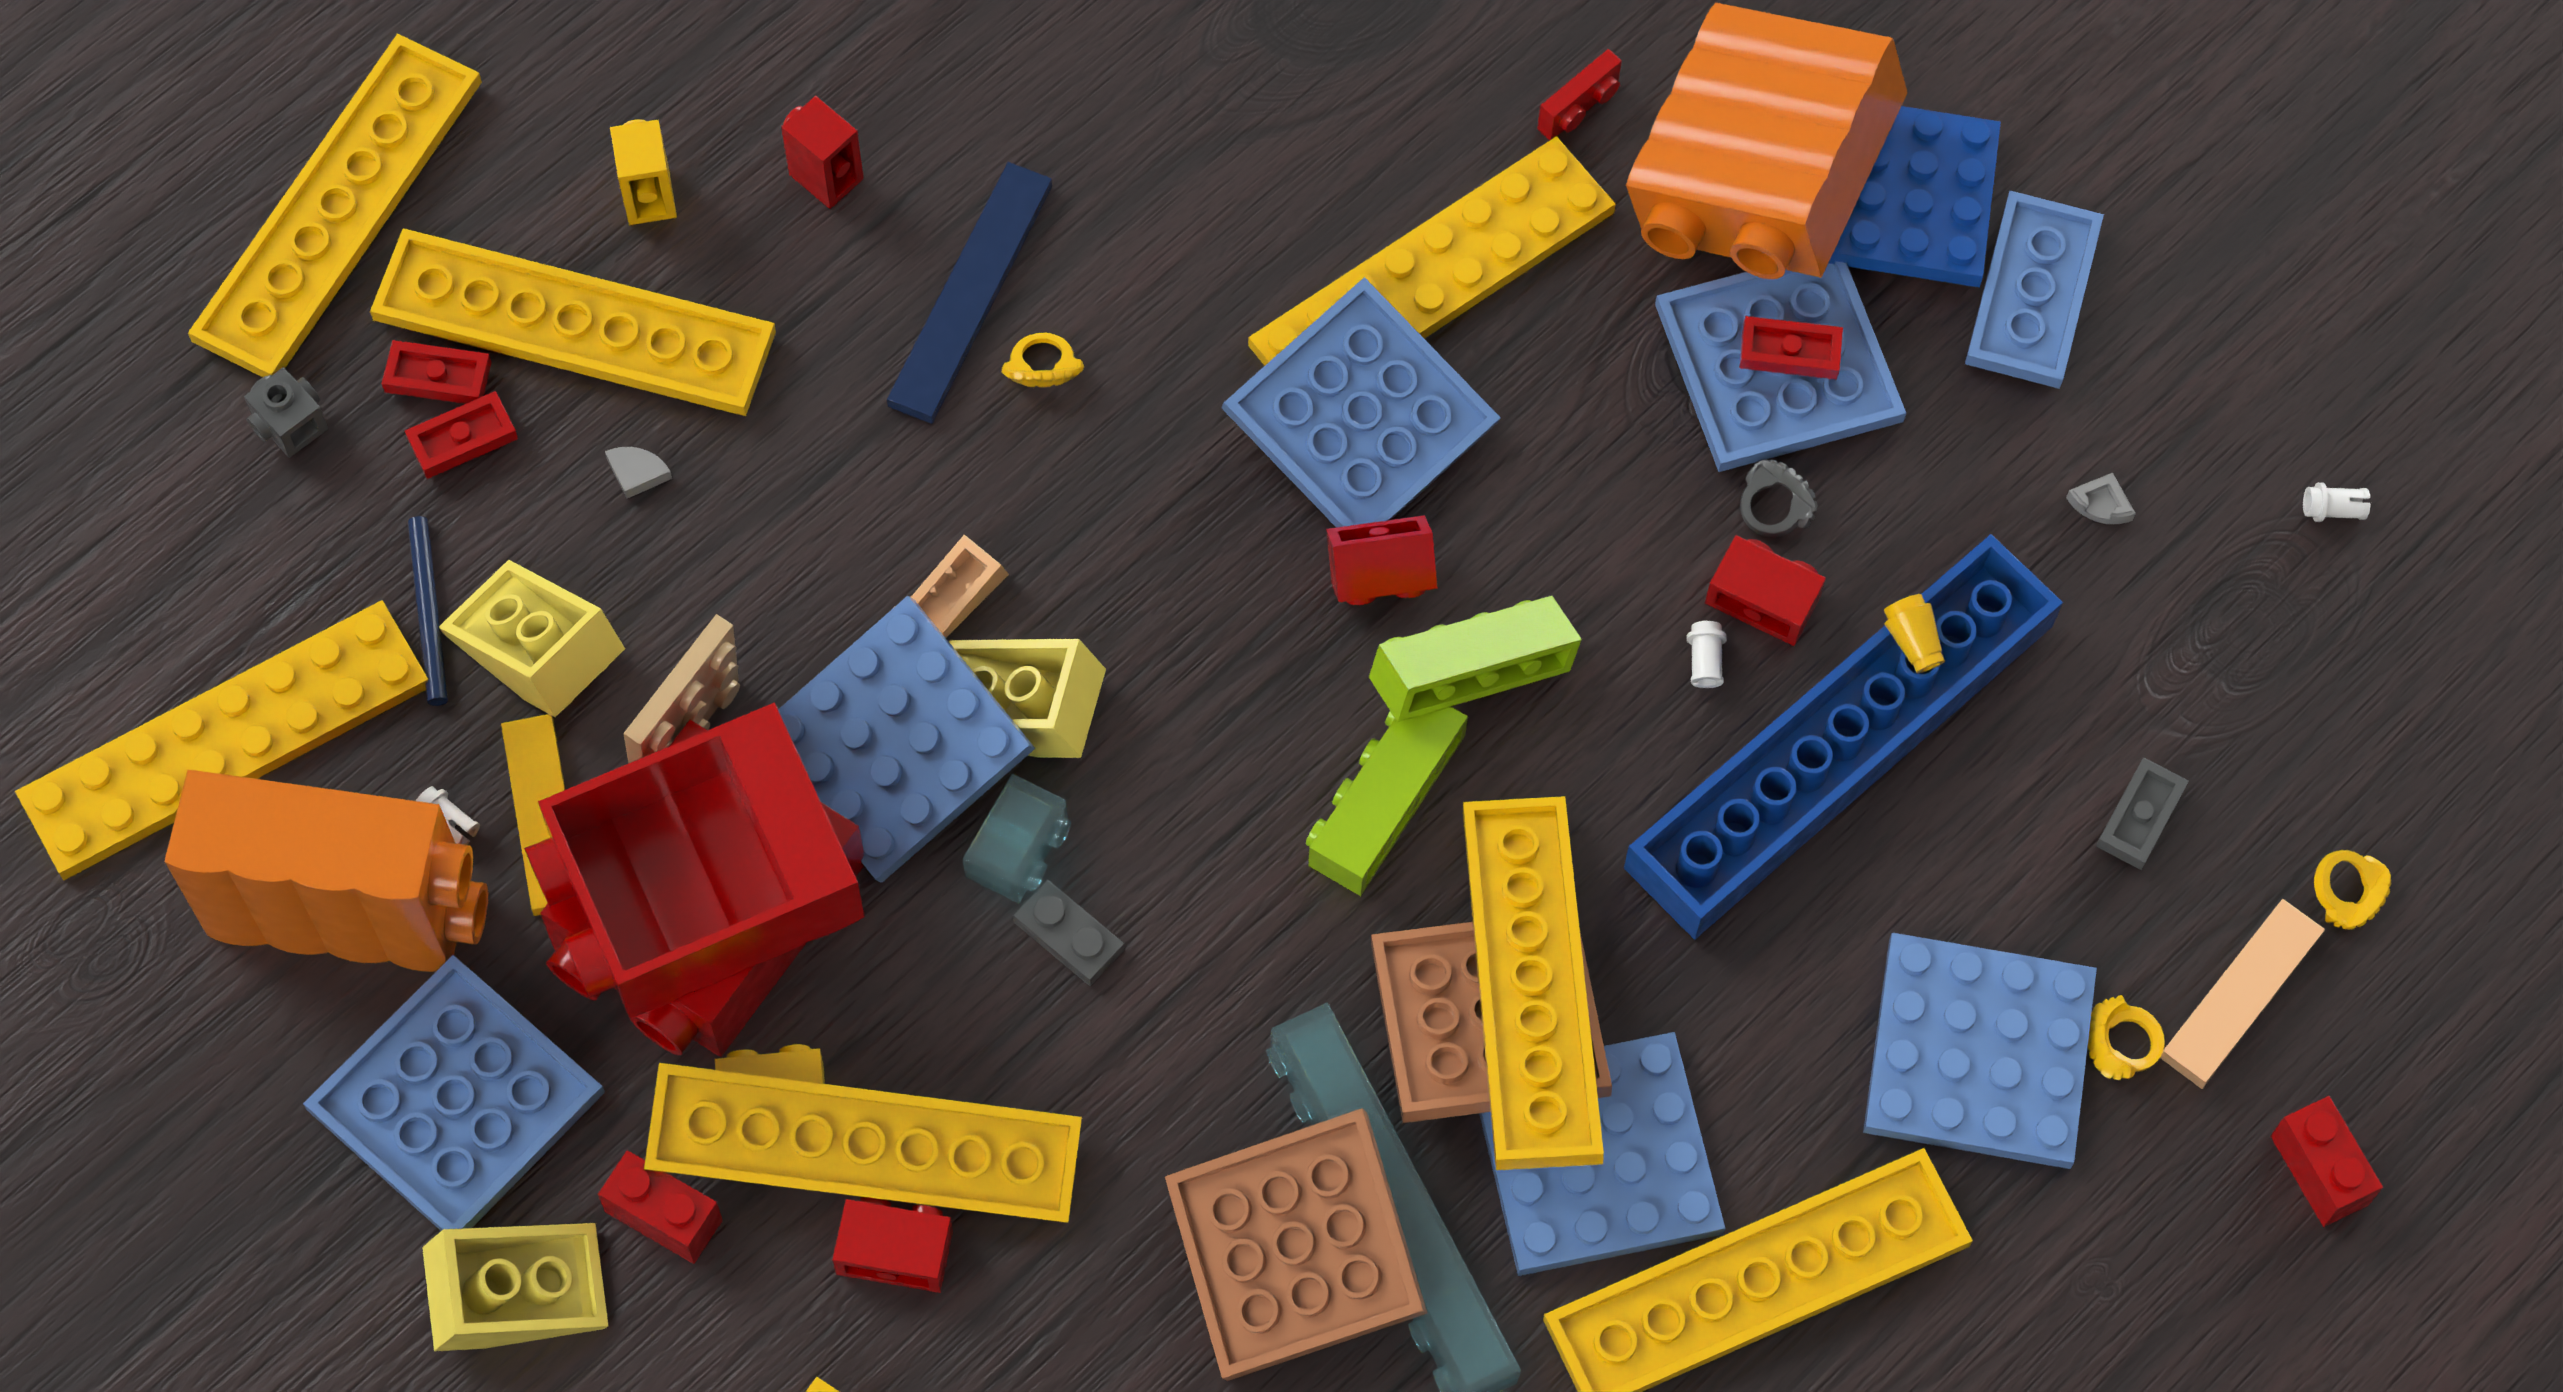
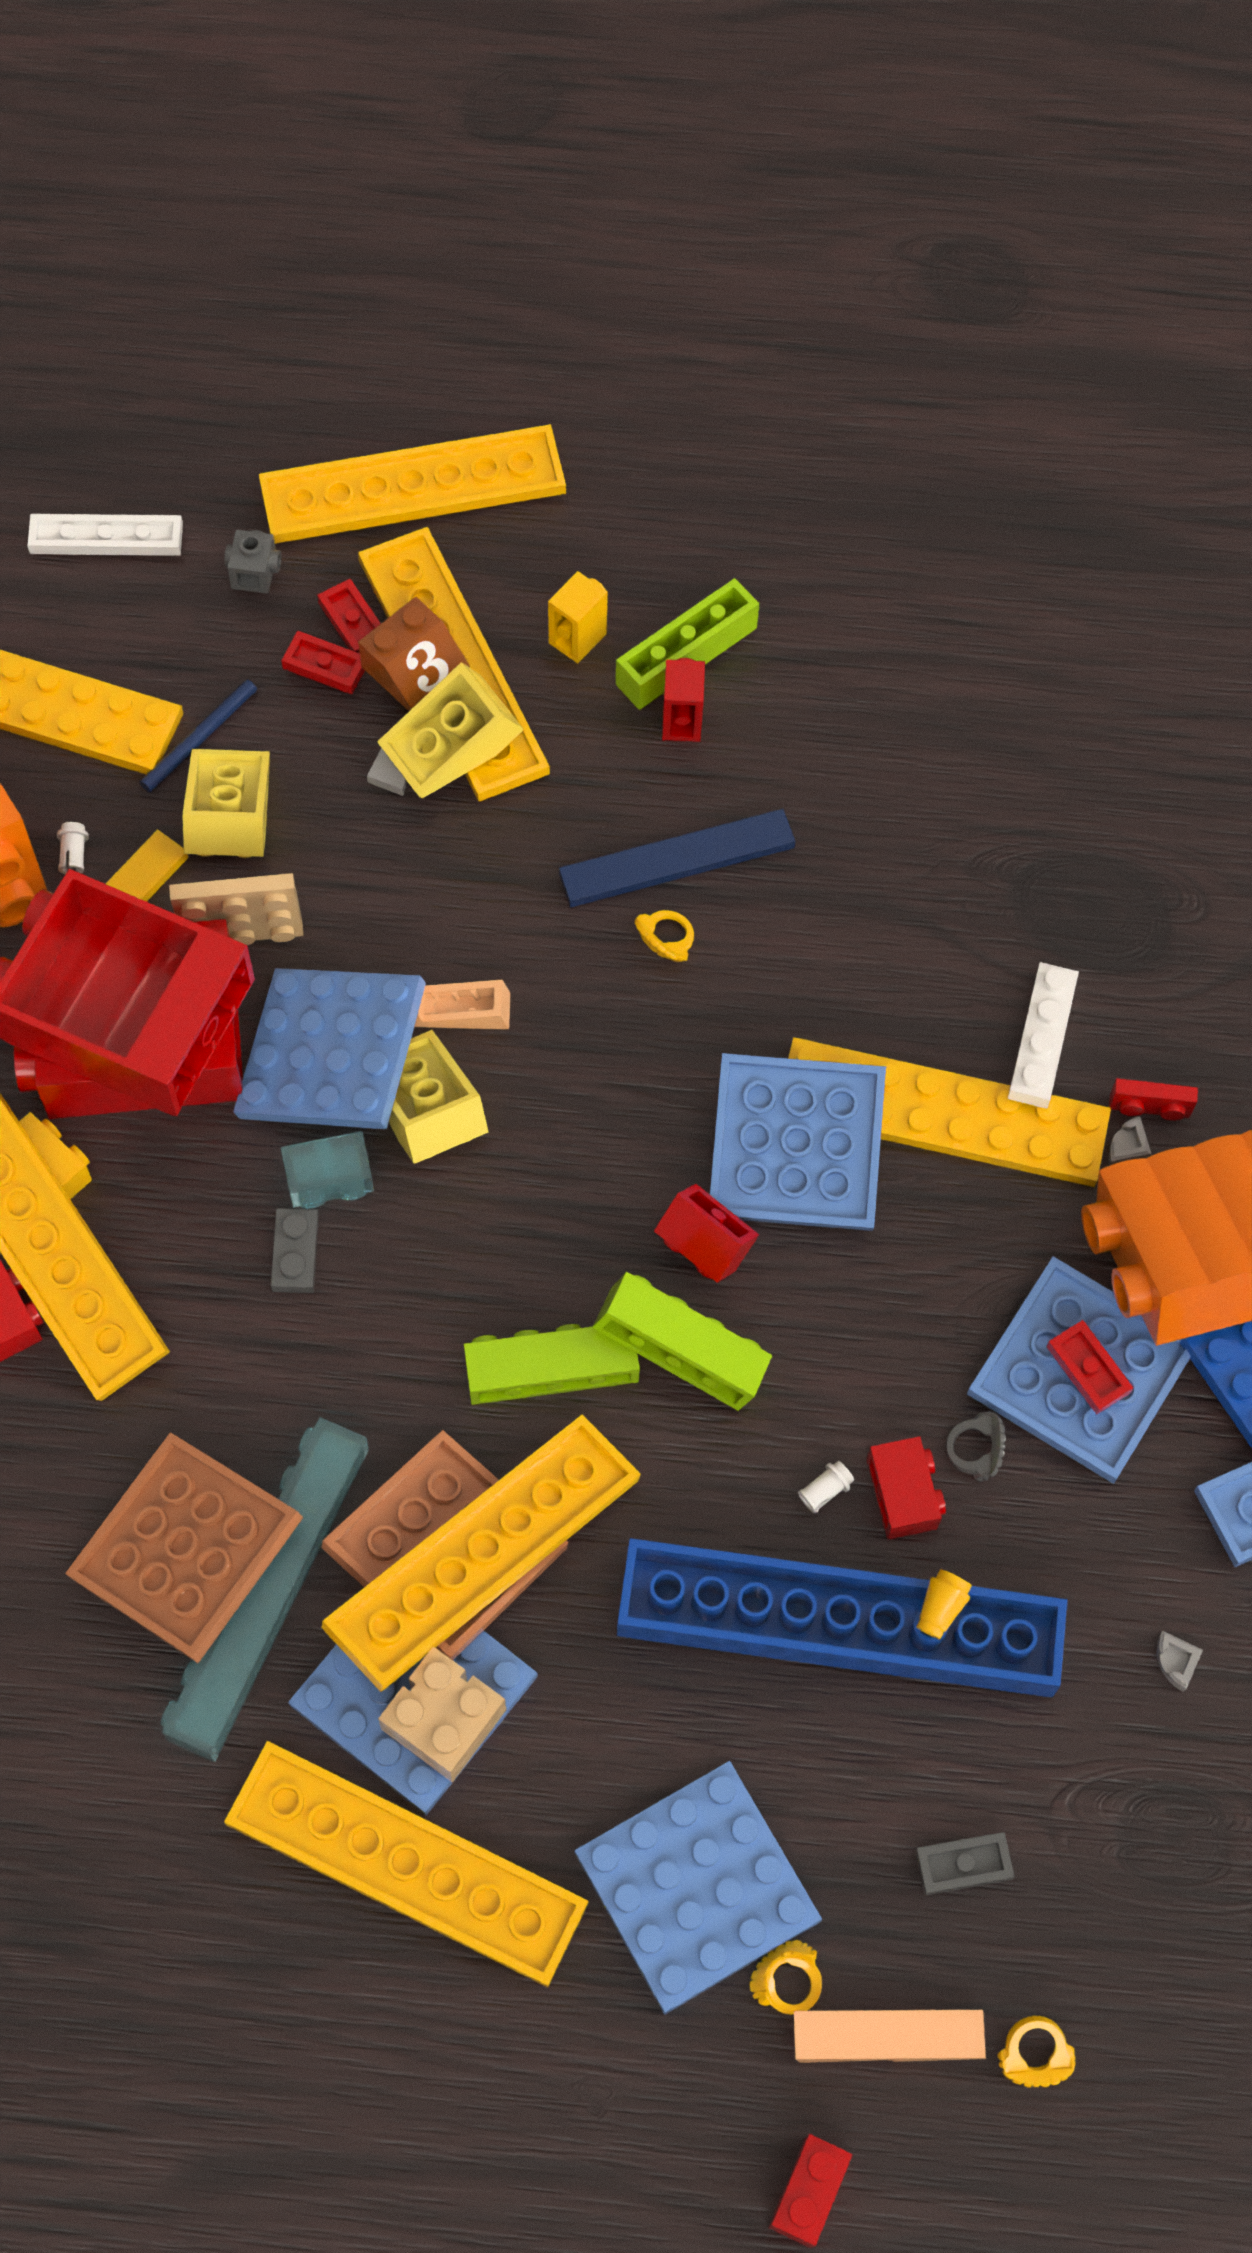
camera: 50 degrees right, 0 degrees up
(111, 526) = (105, 534): none -> white plate
(546, 346) = (410, 653): none -> dark orange slope
(661, 379) = (450, 732): none -> light yellow slope
(761, 103) = (696, 634): none -> lime brick
(1438, 131) = (1043, 1035): none -> white plate
(1600, 151) = (1129, 1143): none -> light grey tile
(1662, 1135) = (442, 1714): none -> tan piece

